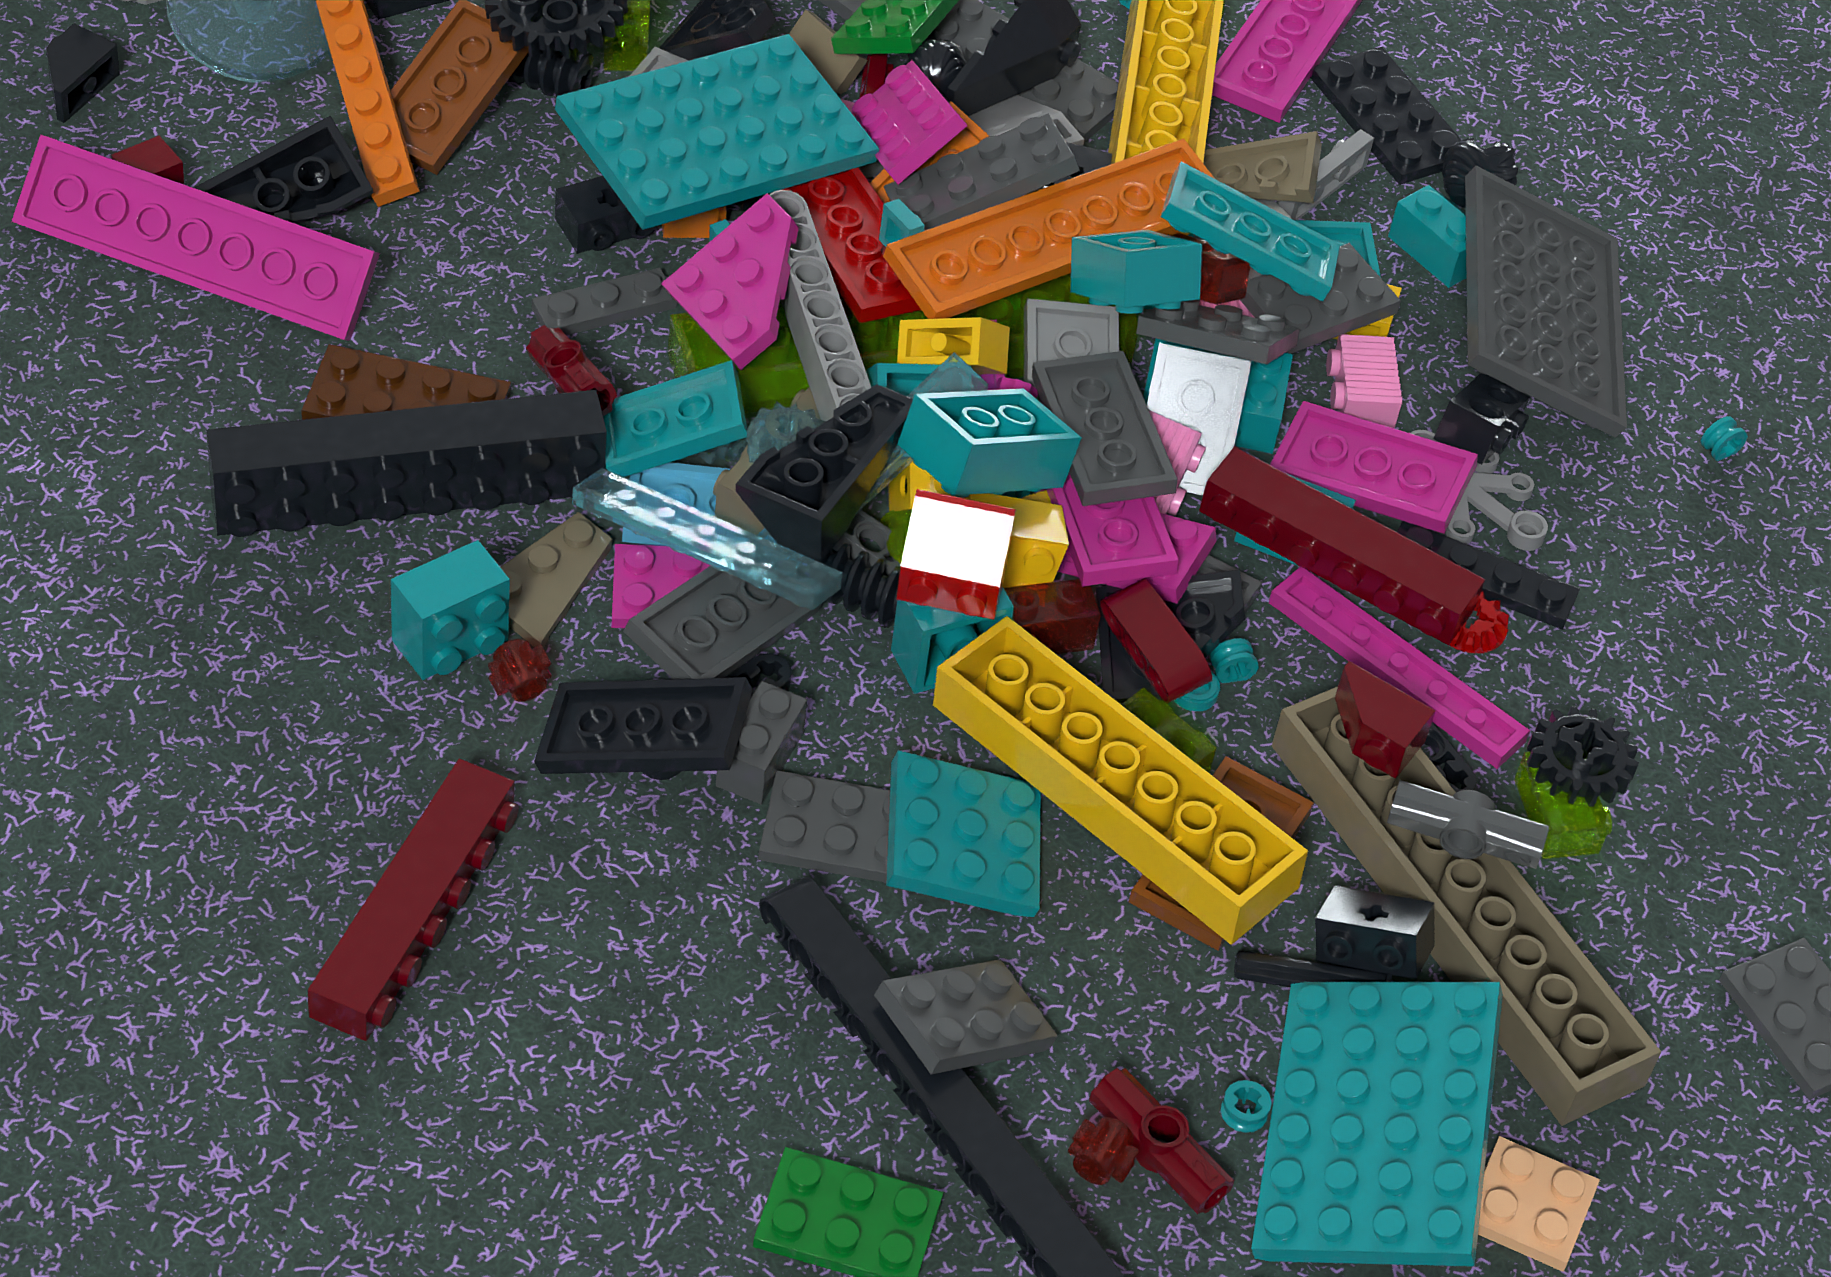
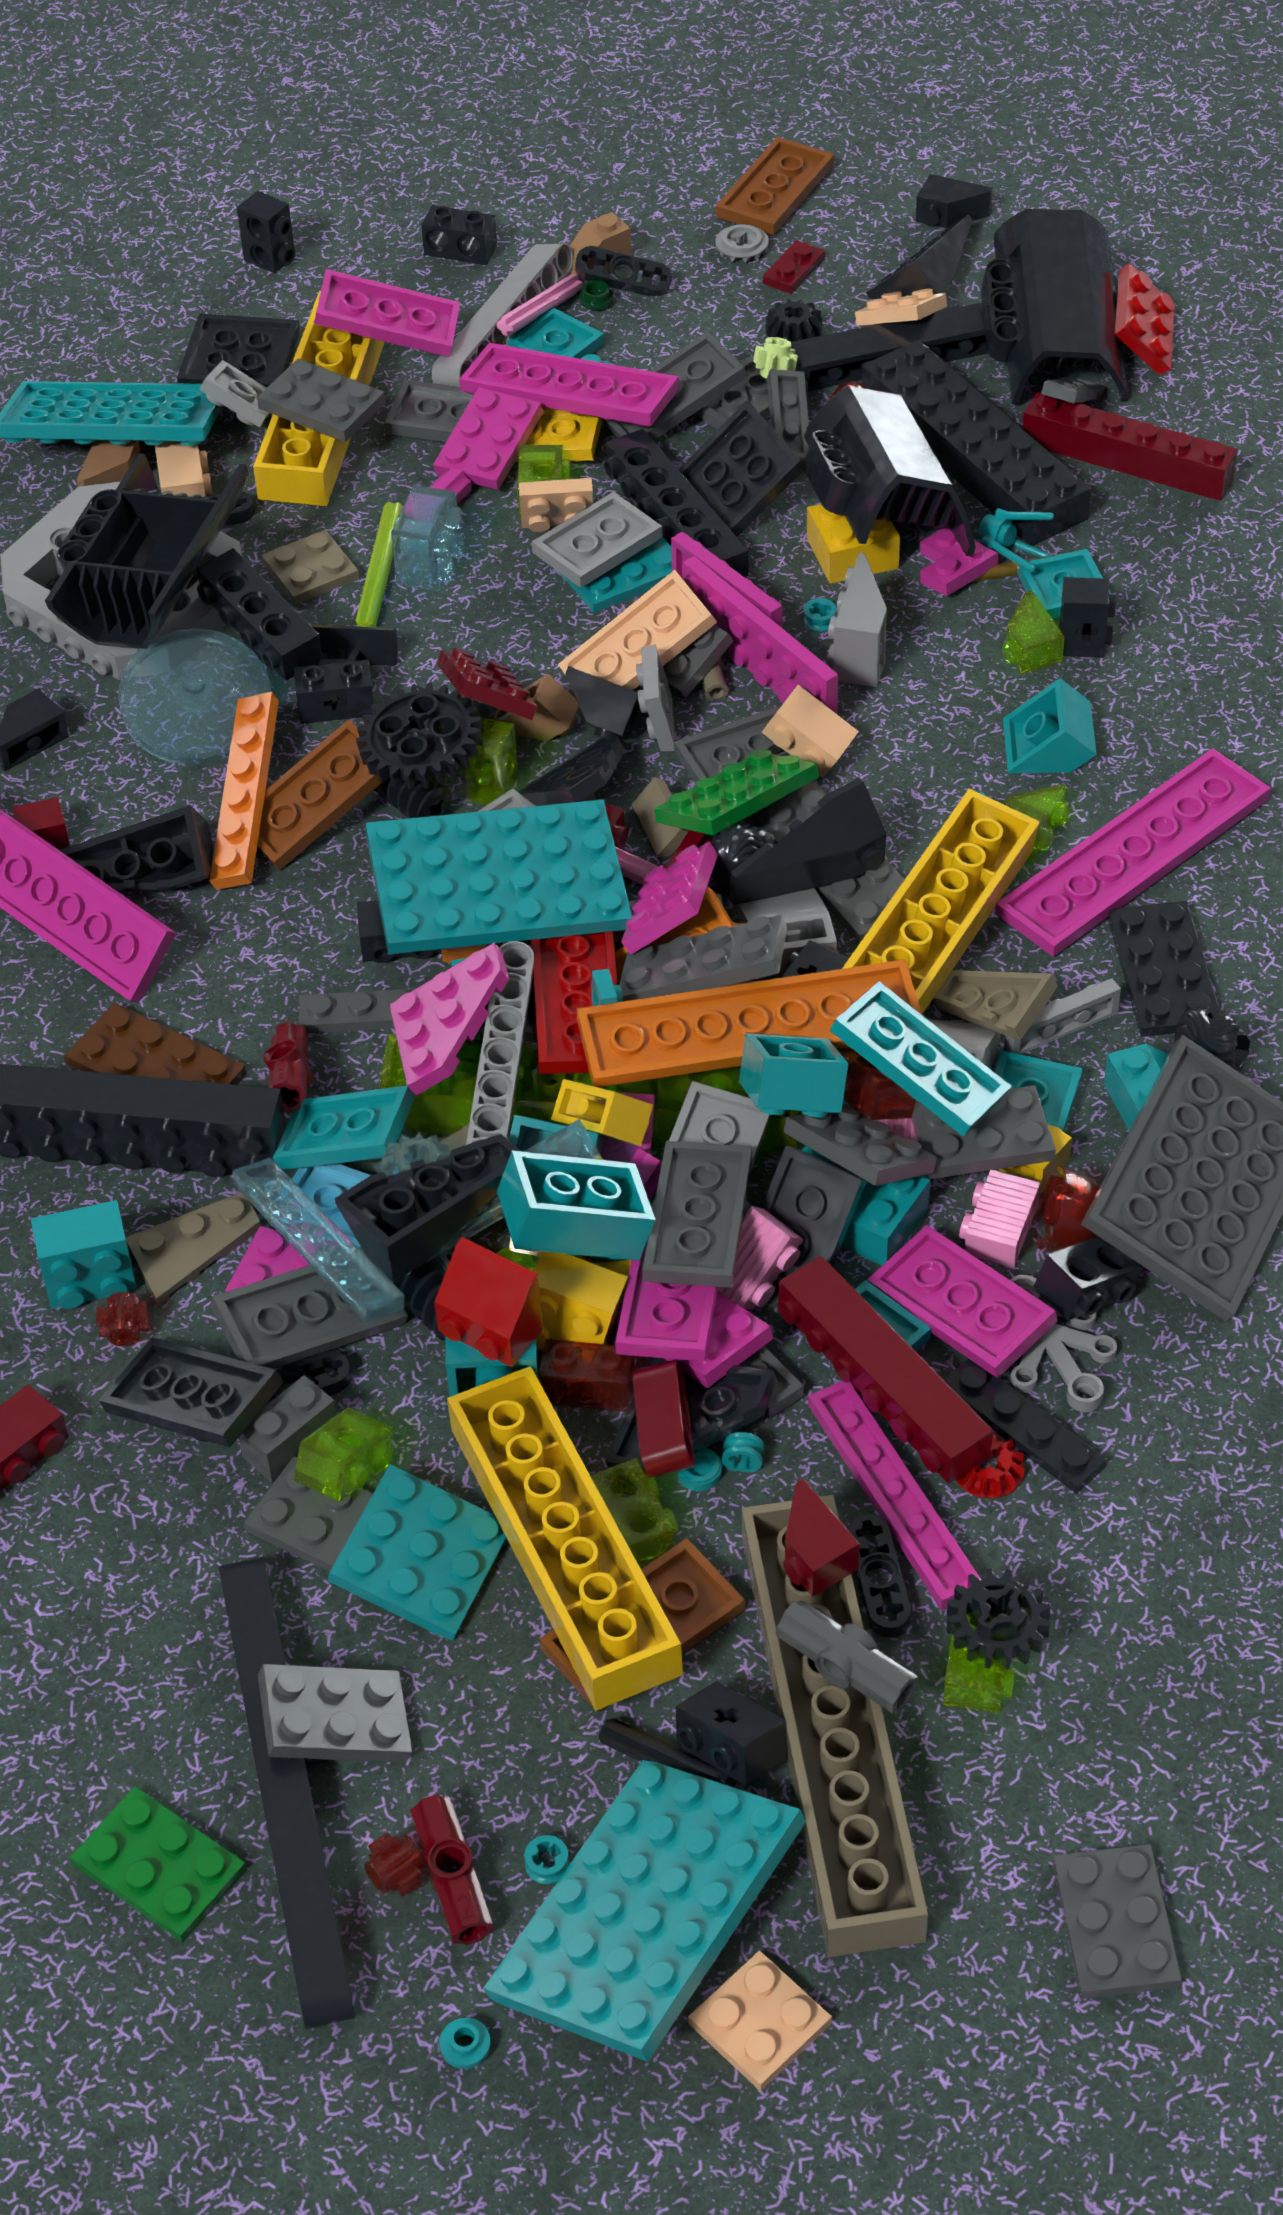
camera: 30 degrees right, 0 degrees up
(842, 753) = (344, 1454): none -> clear neon green brick
(1434, 352) = (1064, 1208): none -> clear red cylinder

